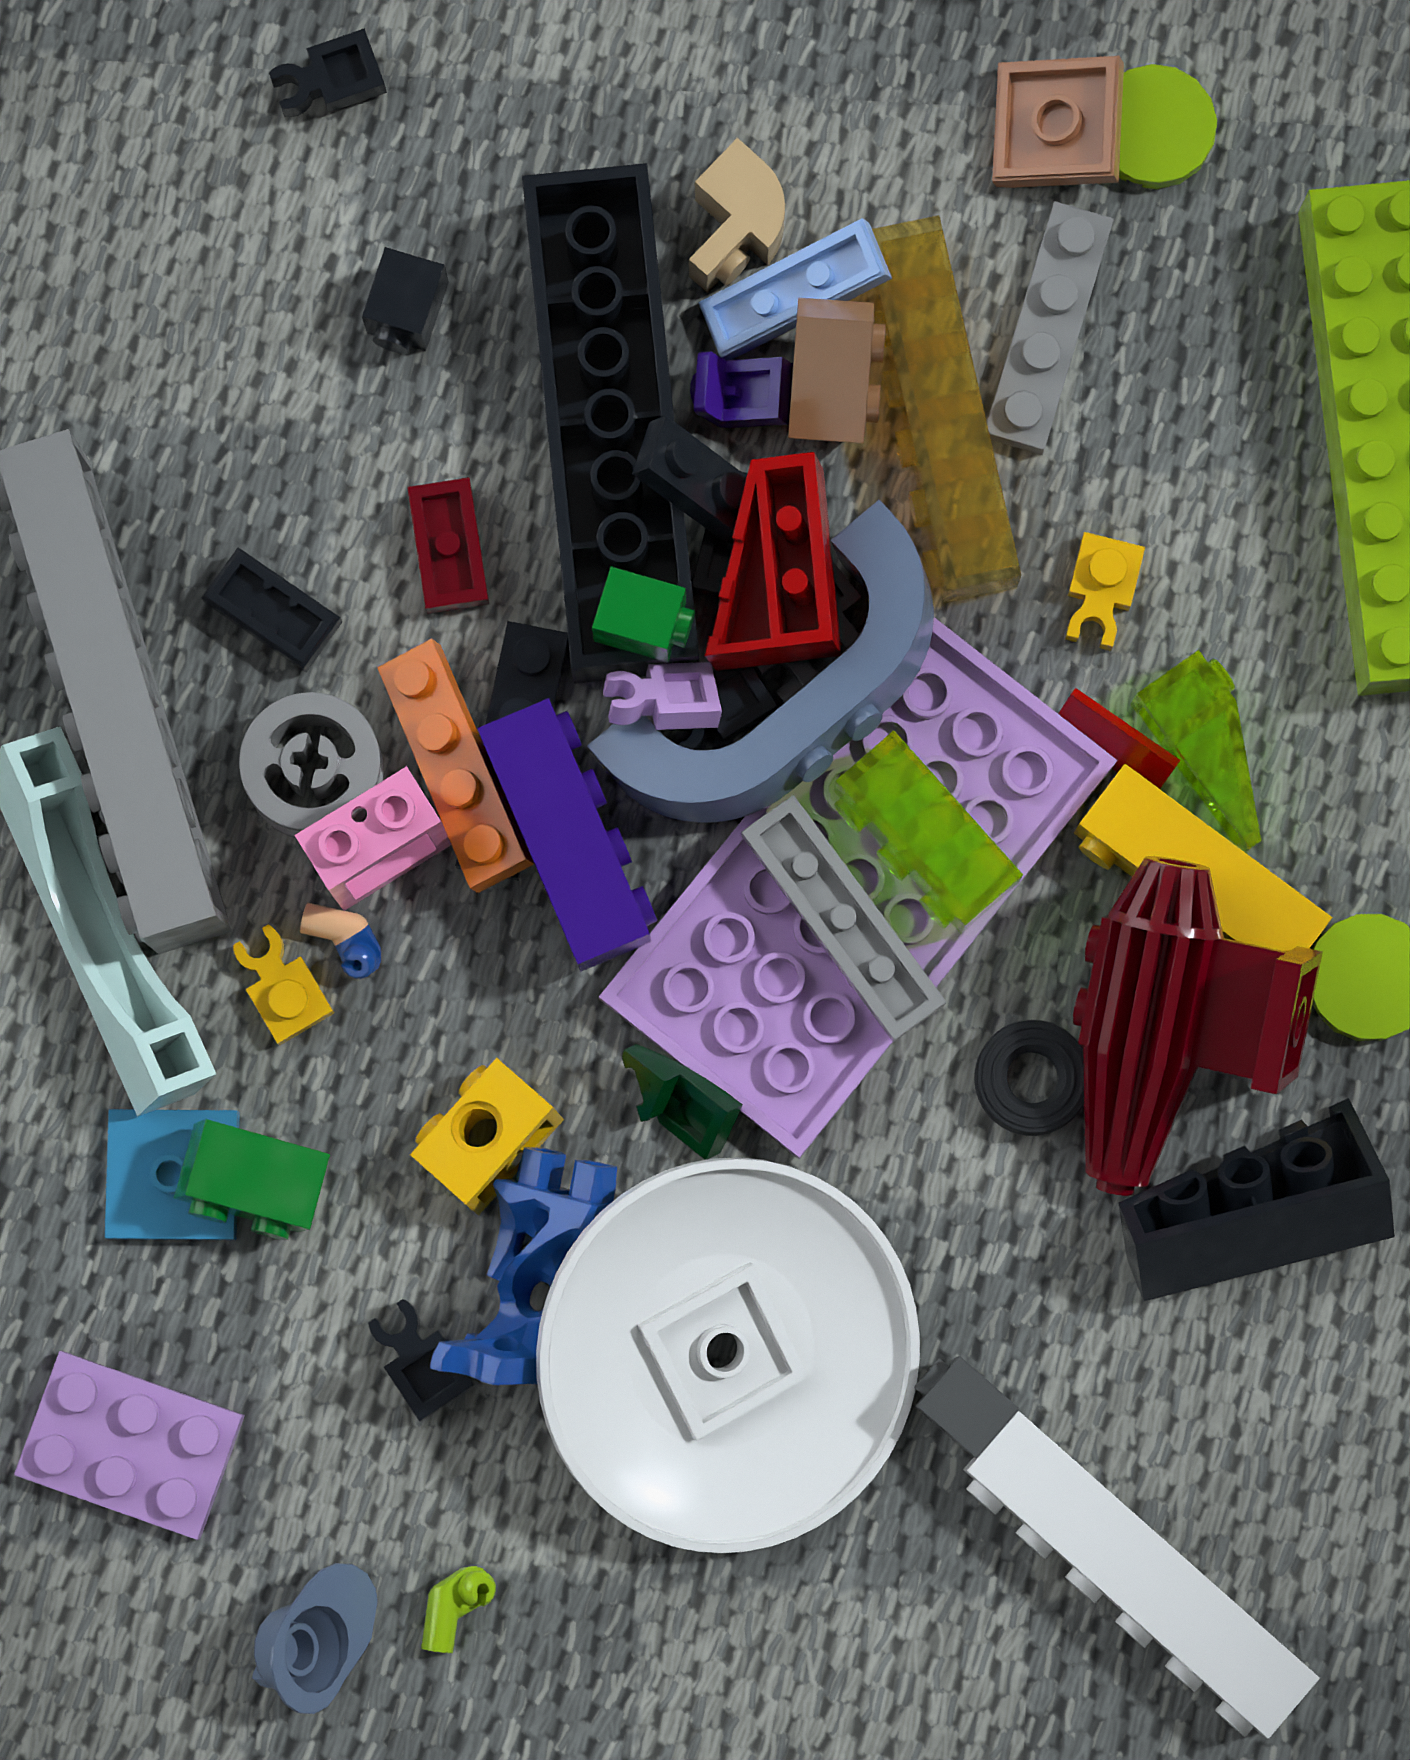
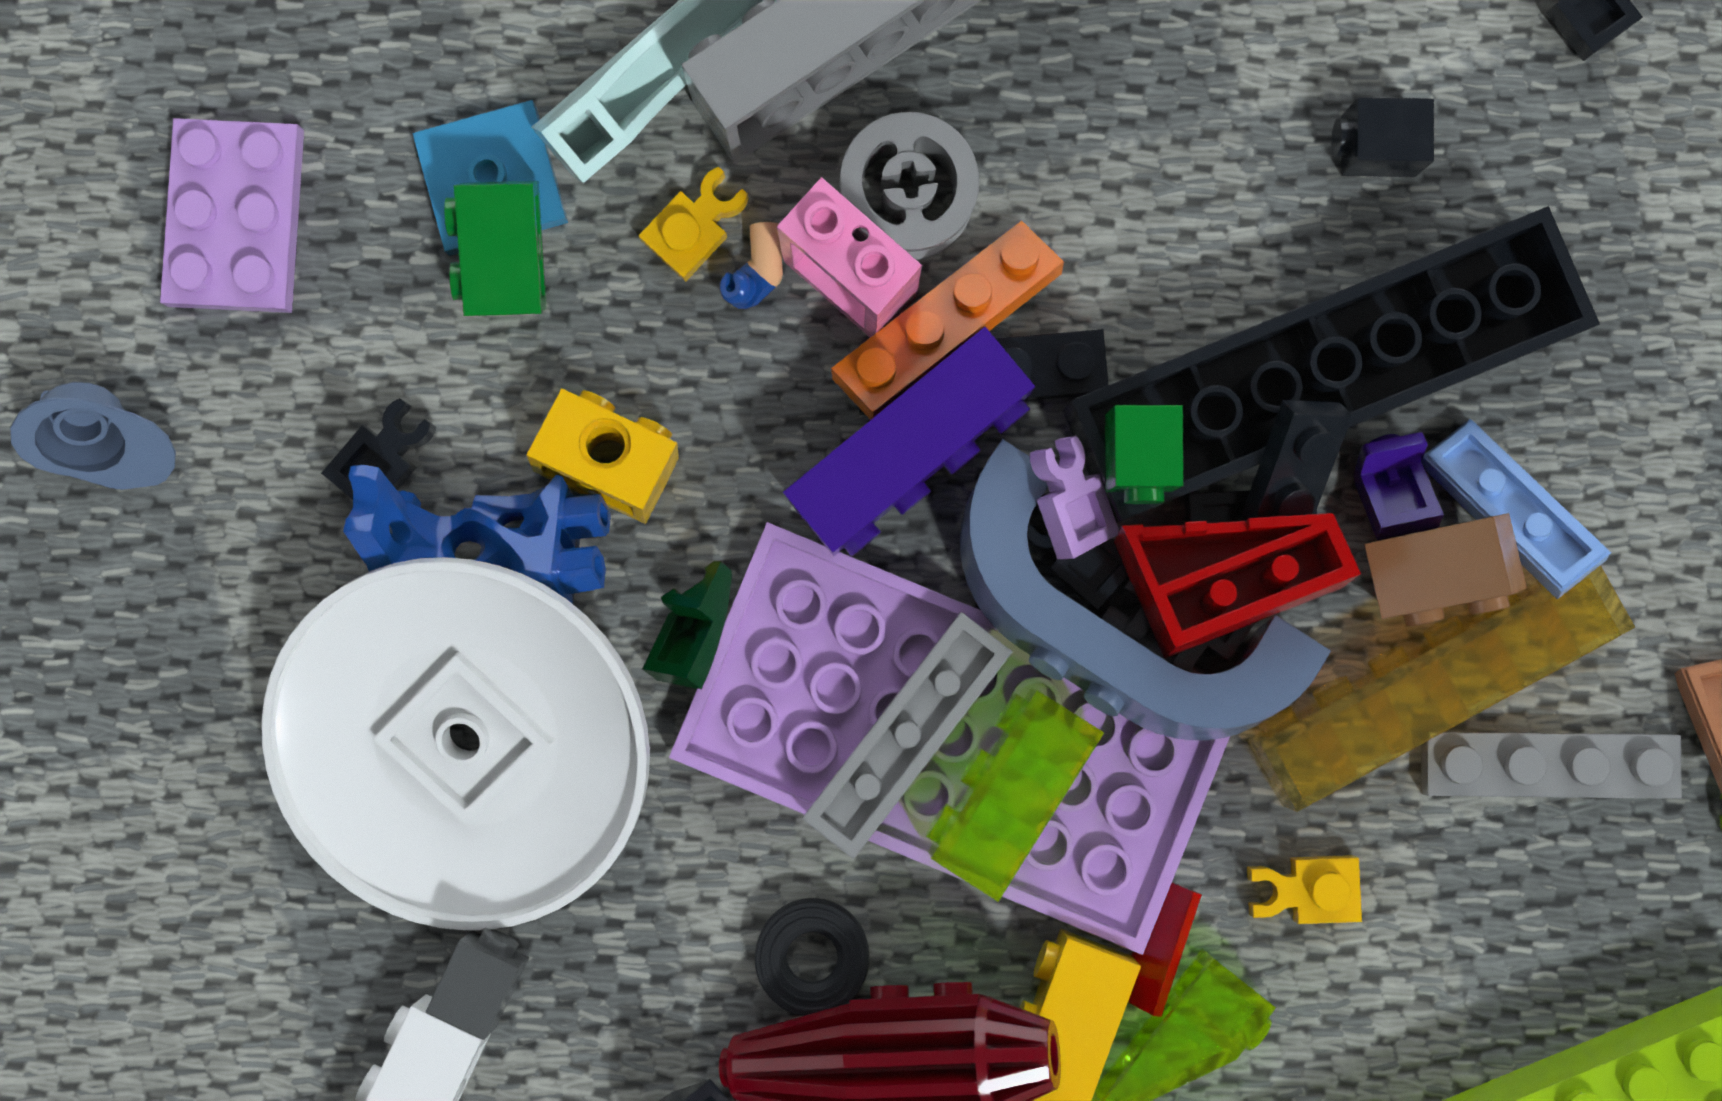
camera: 70 degrees right, 5 degrees up
(272, 609) = (1047, 105): black plate -> none
(448, 545) = (1159, 251): dark red plate -> none
(452, 1600) = (169, 550): lime arm -> none
(751, 208) = (1582, 439): tan brick -> none

